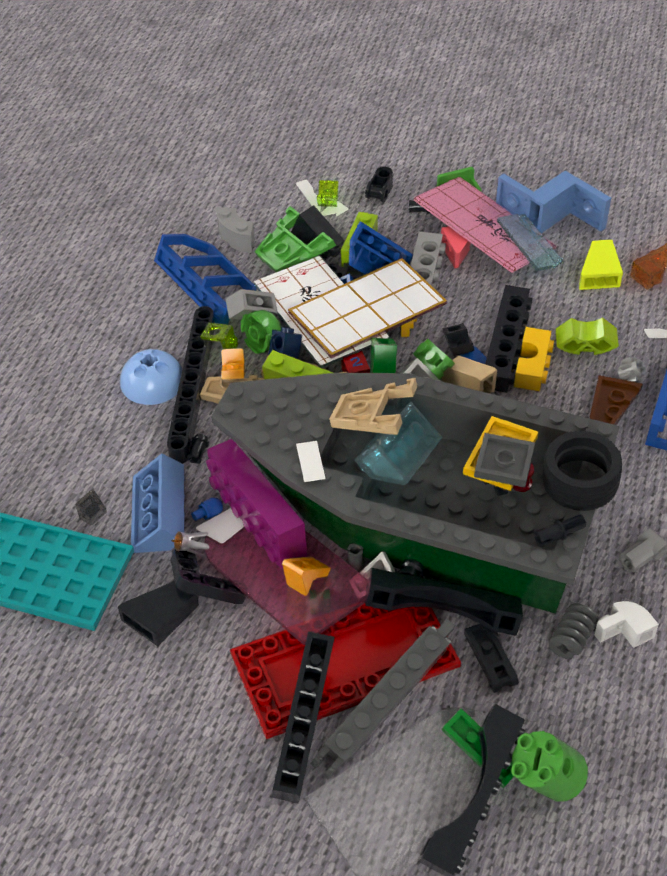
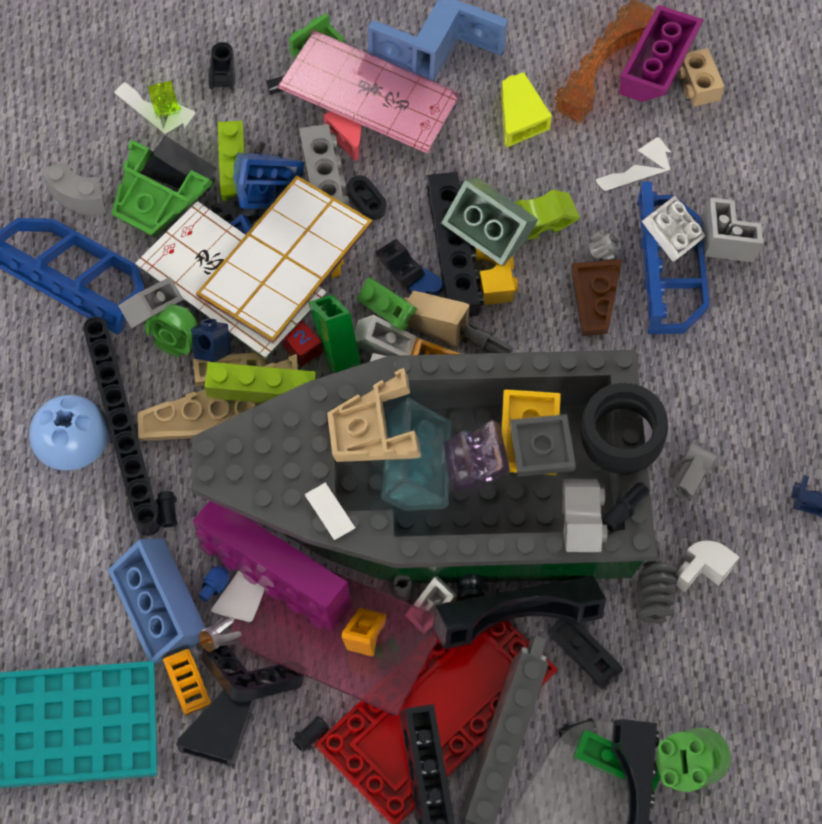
camera: 25 degrees left, 15 degrees up
(90, 508) = (82, 630): clear smoke slope -> none
(151, 556) = (179, 659): none -> light orange slope
(225, 336) = (137, 353): clear neon green bracket -> none
(229, 641) = (311, 733): none -> black pin
(233, 364) = (163, 390): light orange slope -> none
(446, 457) = (476, 457): none -> clear purple slope
(452, 290) = (369, 198): none -> black plate
(518, 523) = (582, 515): none -> light grey brick
(530, 241) = (425, 99): clear light blue windscreen -> none
(540, 322) = (489, 220): none -> sand green slope

